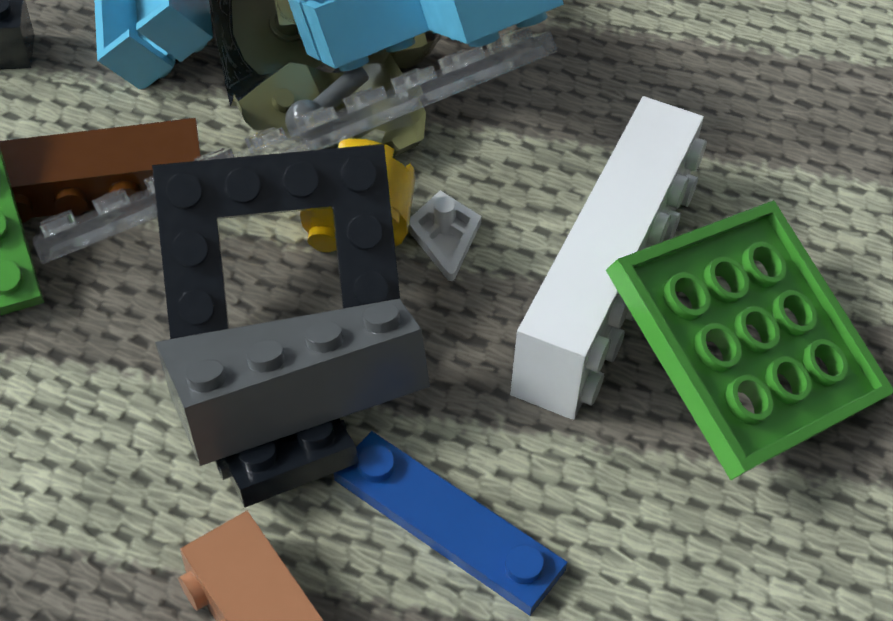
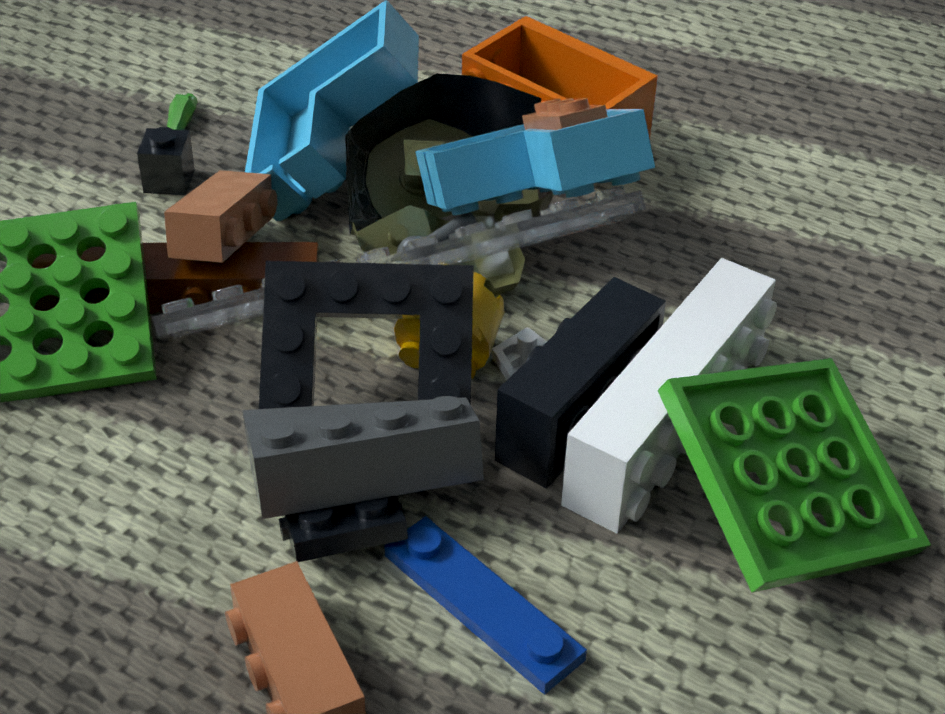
camera: 10 degrees right, 10 degrees down
(81, 101) = (219, 216): none -> nougat brick
(507, 254) = (569, 376): none -> black brick

